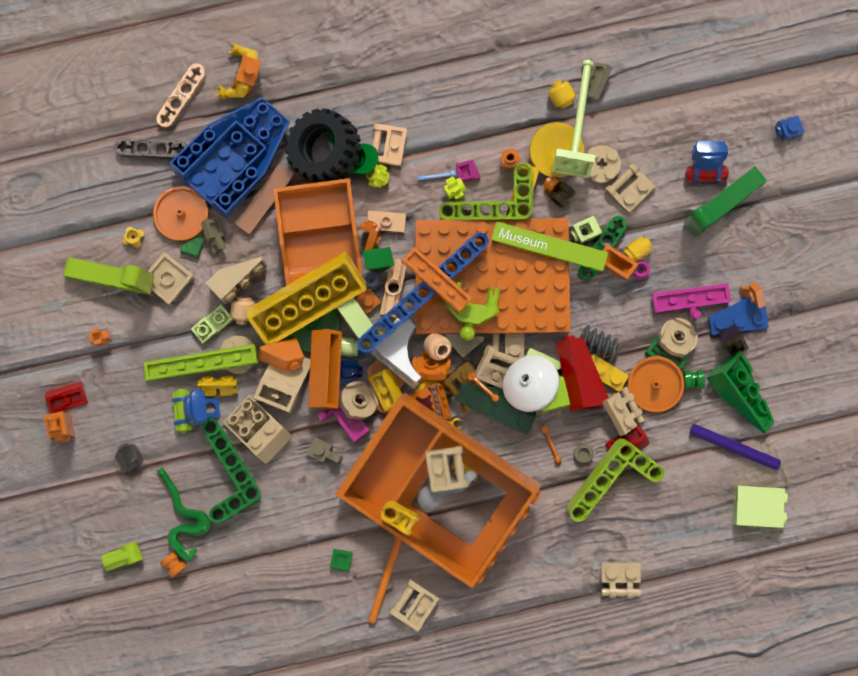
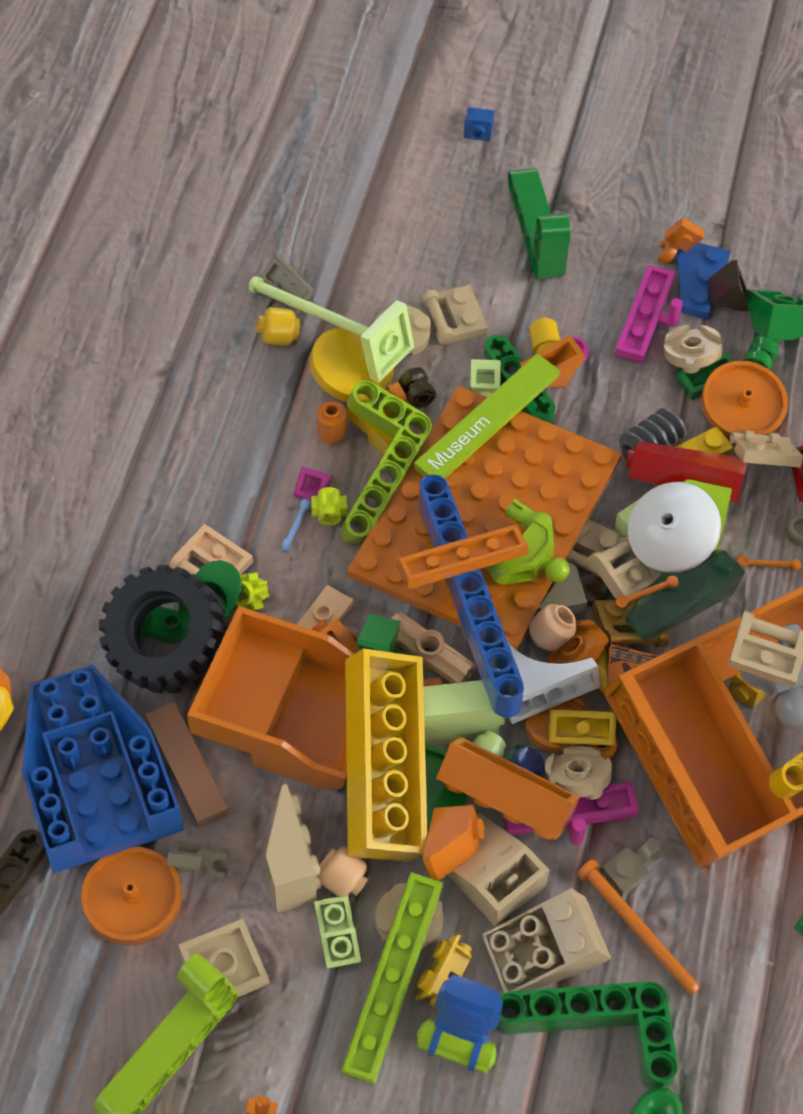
camera: 65 degrees left, 25 degrees down
(133, 232) = (121, 976): yellow plate -> none
(193, 247) = (196, 903): green tile -> none
(292, 469) = (590, 872): none -> orange bar
(708, 162) = (473, 211): blue piece -> none

